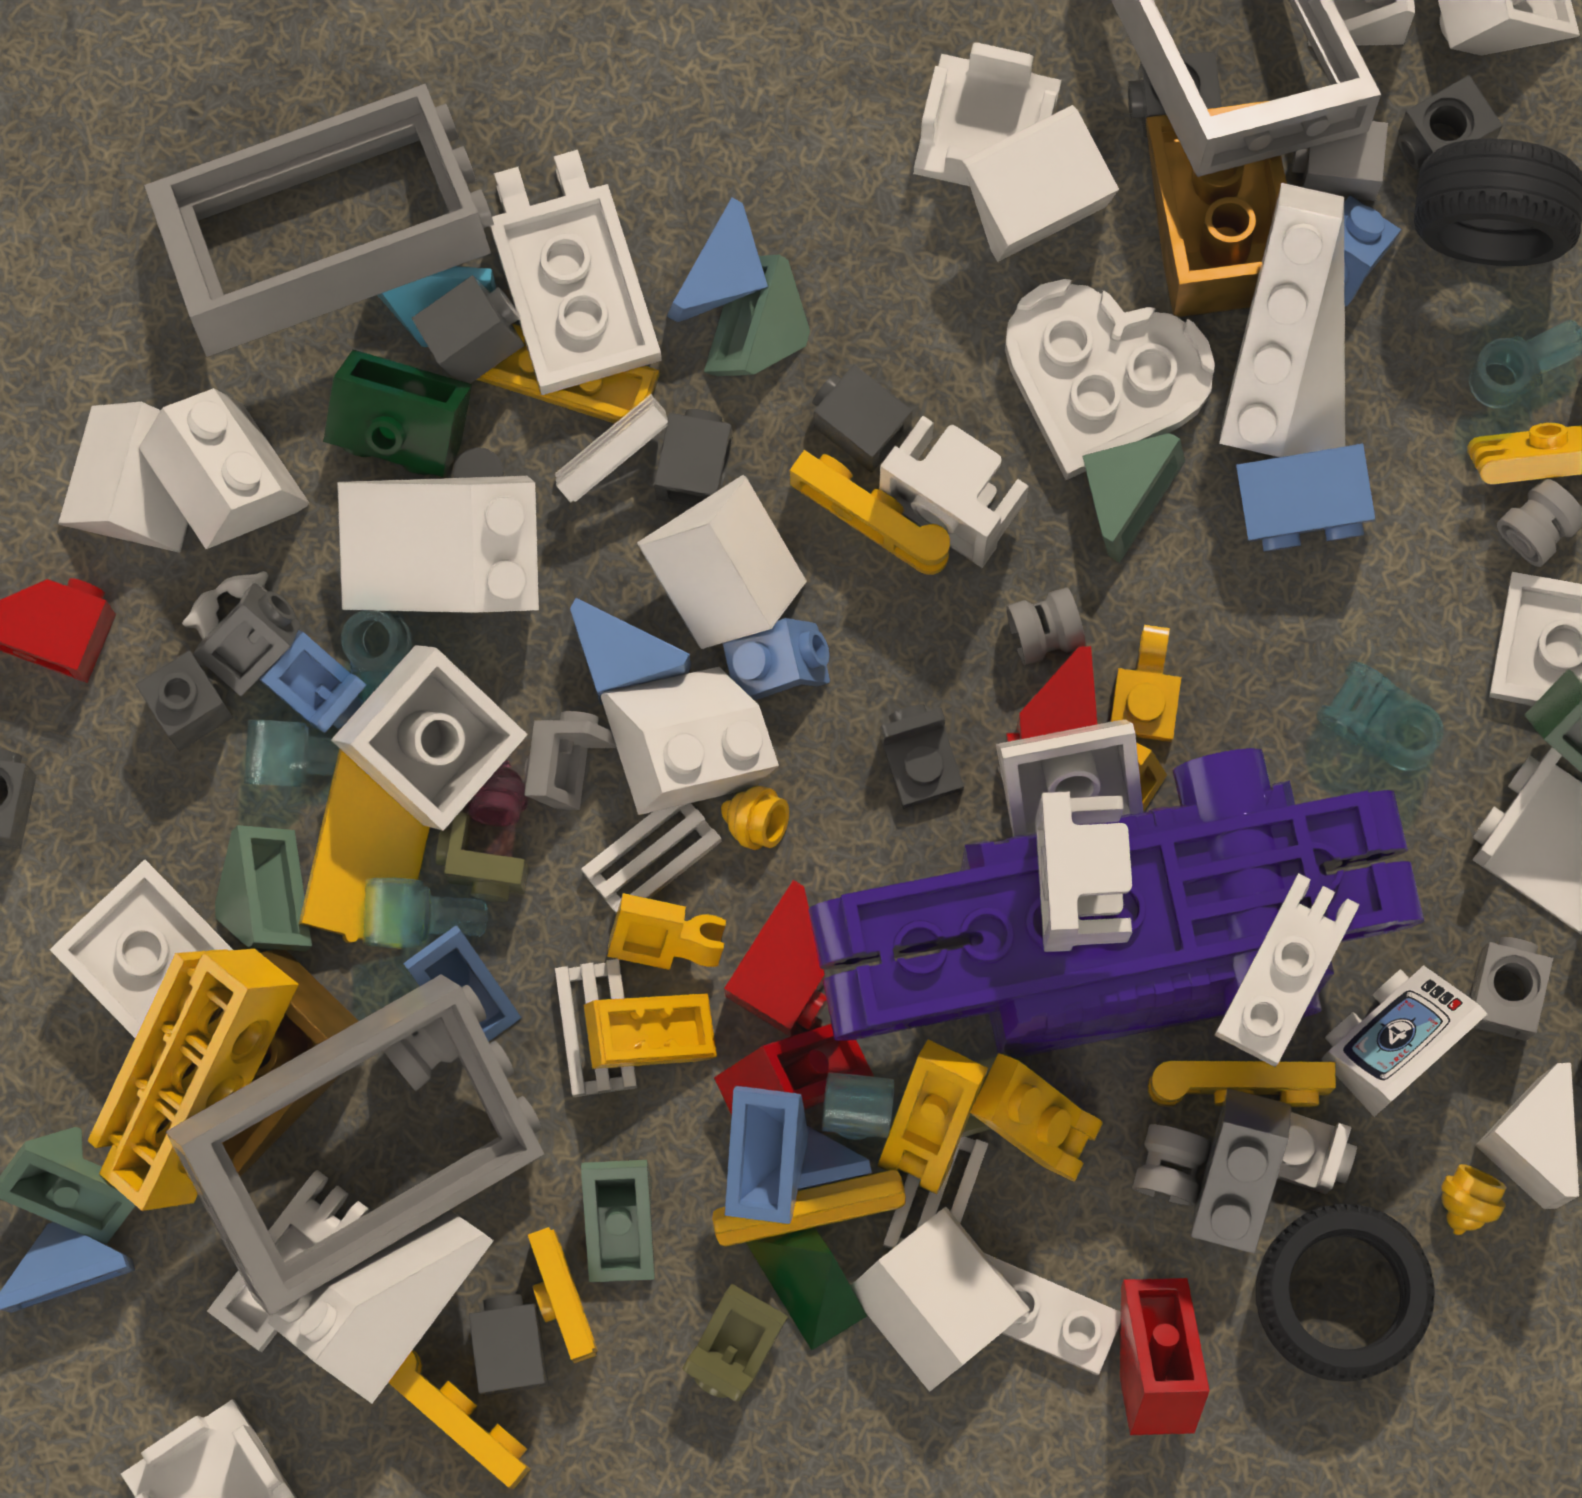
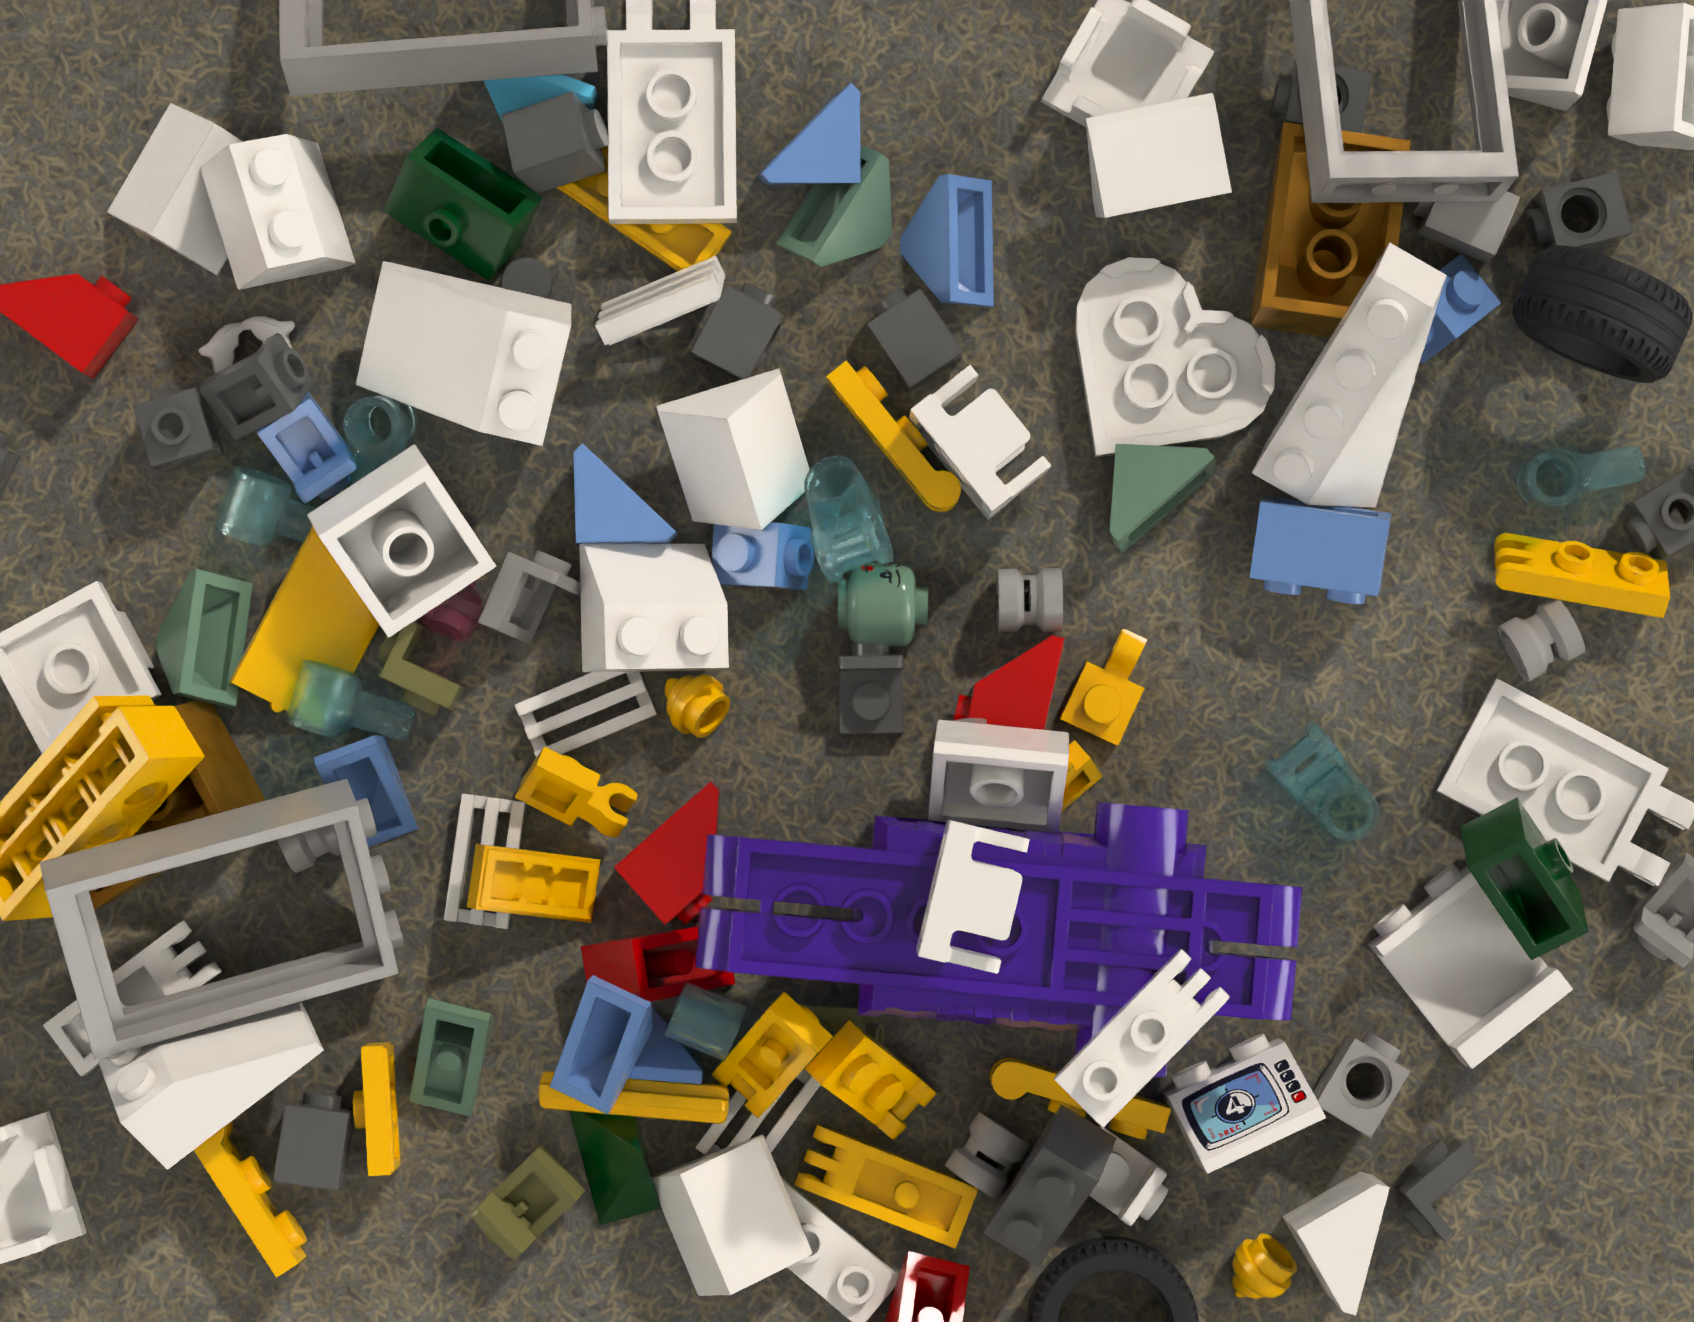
camera: 15 degrees right, 10 degrees up
(847, 594) = (844, 518): none -> clear light blue piece
(869, 318) = (953, 241): none -> medium blue slope
(906, 669) = (881, 604): none -> sand green head
(1085, 1226) = (889, 1187): none -> yellow hinge

